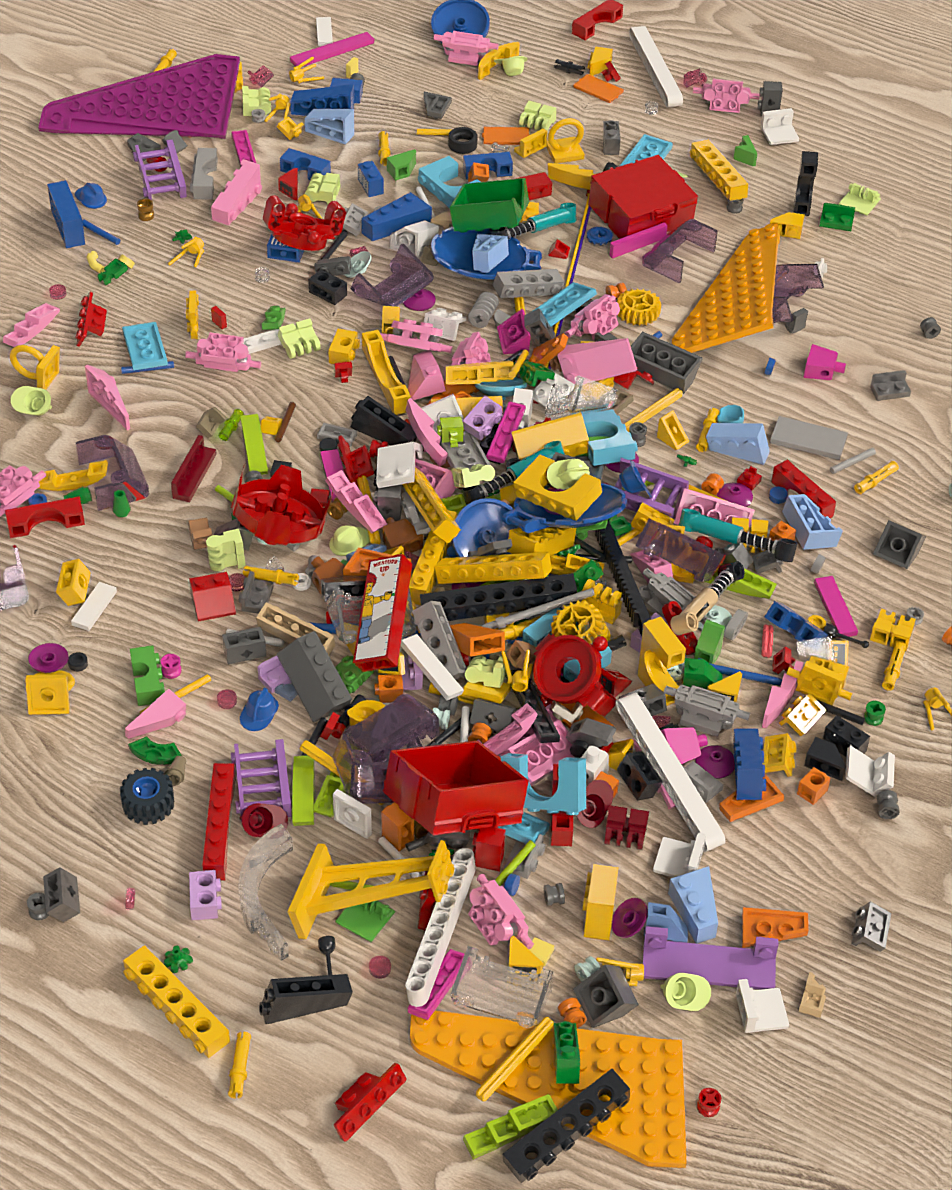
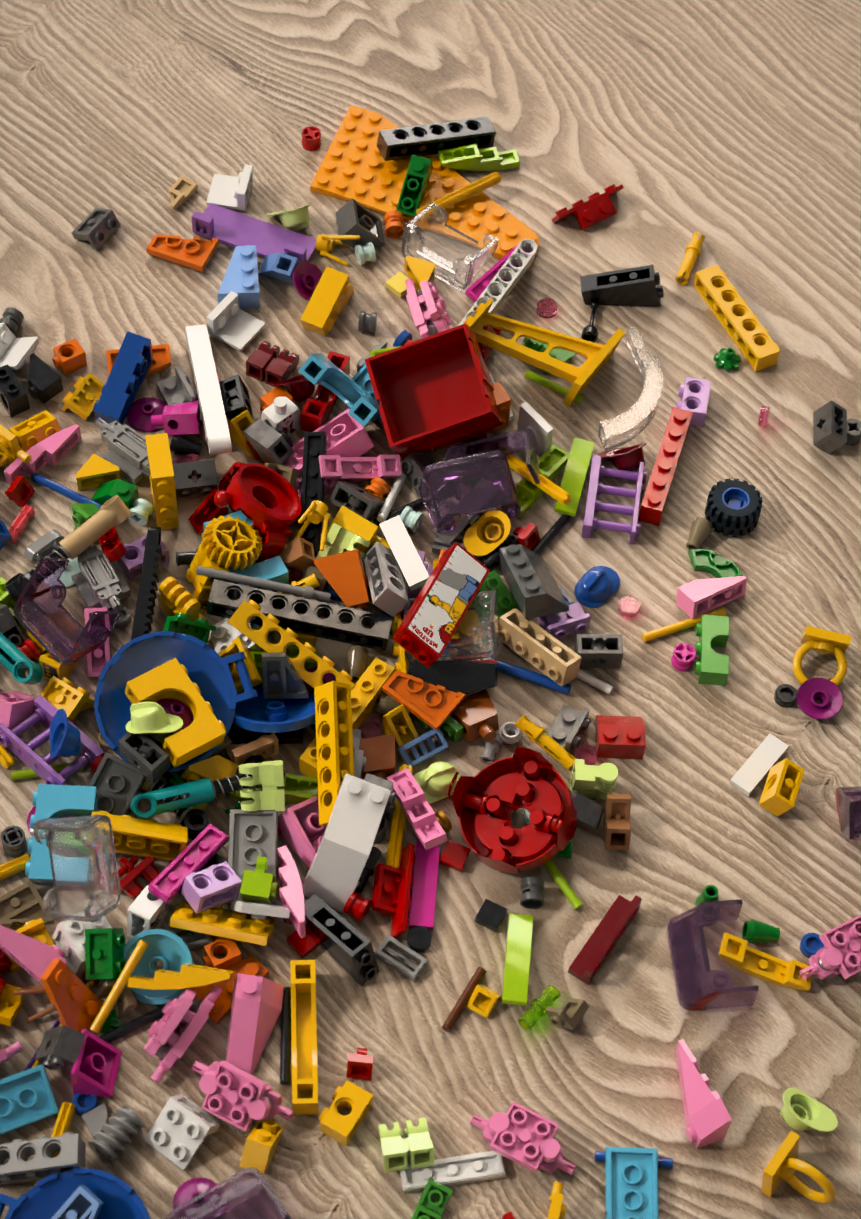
camera: 165 degrees left, 10 degrees up
(65, 511) = (776, 908): red arch -> none

